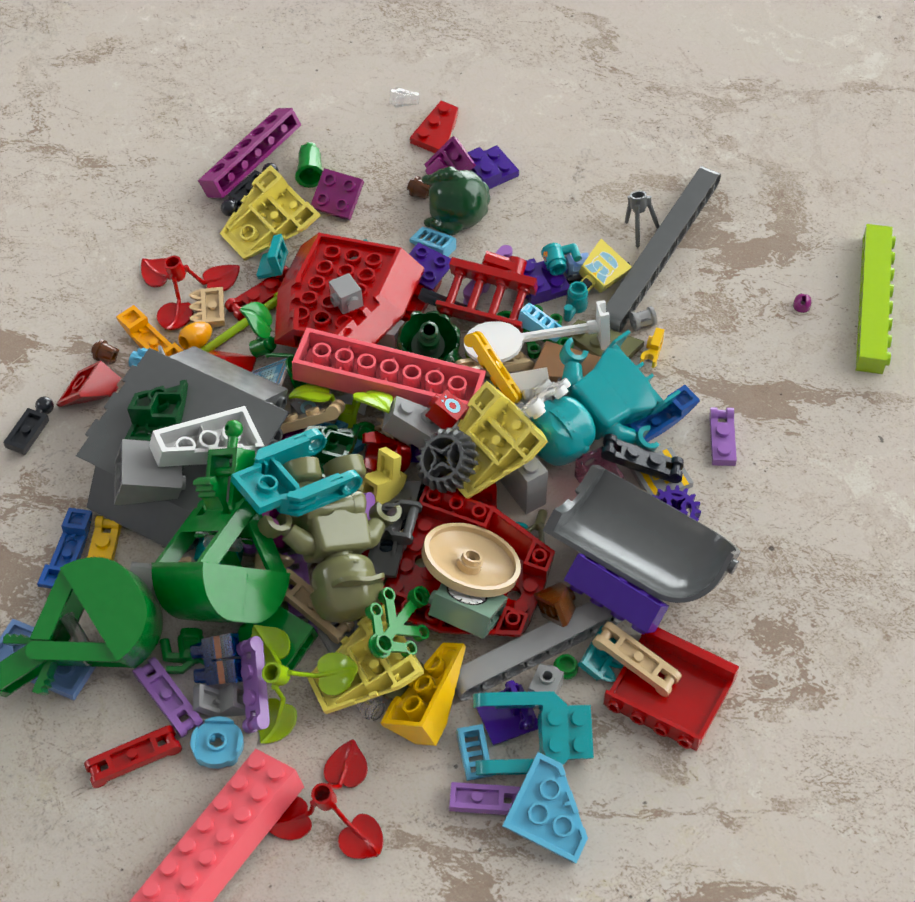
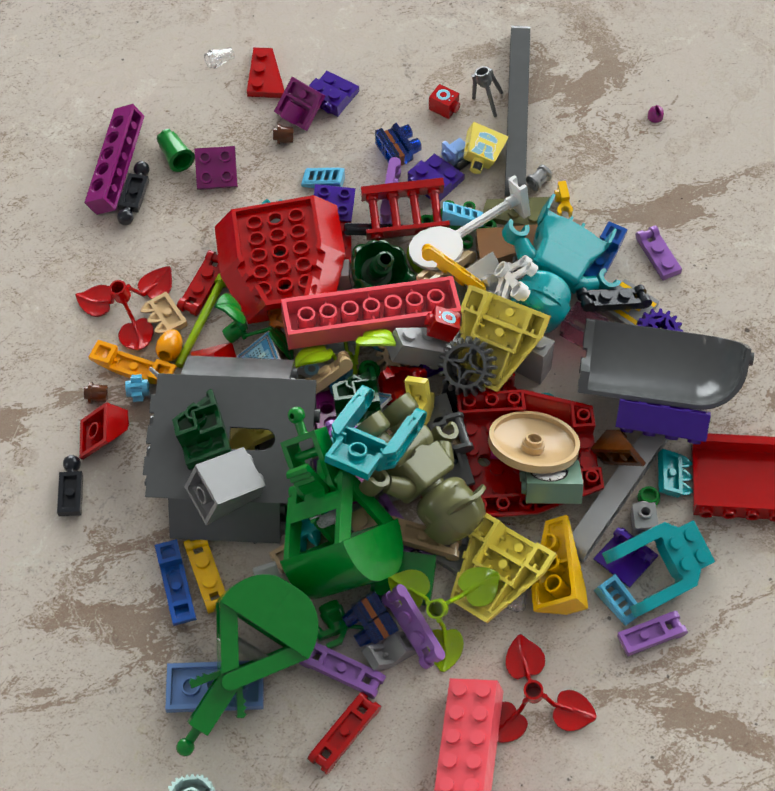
camera: 25 degrees left, 5 degrees up
(191, 440) = (263, 436): white wedge -> none
(221, 756) = (404, 701): medium azure plate -> none
(267, 211) = (167, 211): light yellow wedge -> none
(273, 262) = (196, 250): teal panel -> none
(345, 293) = (296, 255): light grey brick -> none
(381, 641) = (509, 542): green plant -> none
(455, 200) = (327, 134): dark green piece -> none
(511, 263) = (410, 173): red piece -> none
(519, 235) = (395, 143): none -> clear blue hips
(539, 524) = (559, 388): olive plant -> none
(547, 810) = (707, 620): medium azure plate -> none
(554, 256) = (441, 154): teal piece -> none
(576, 300) = (475, 183): teal piece -> none
(592, 213) = (444, 101): none -> red brick
(637, 658) = (703, 465): tan plate -> none
(874, 299) = (711, 88): lime brick -> none

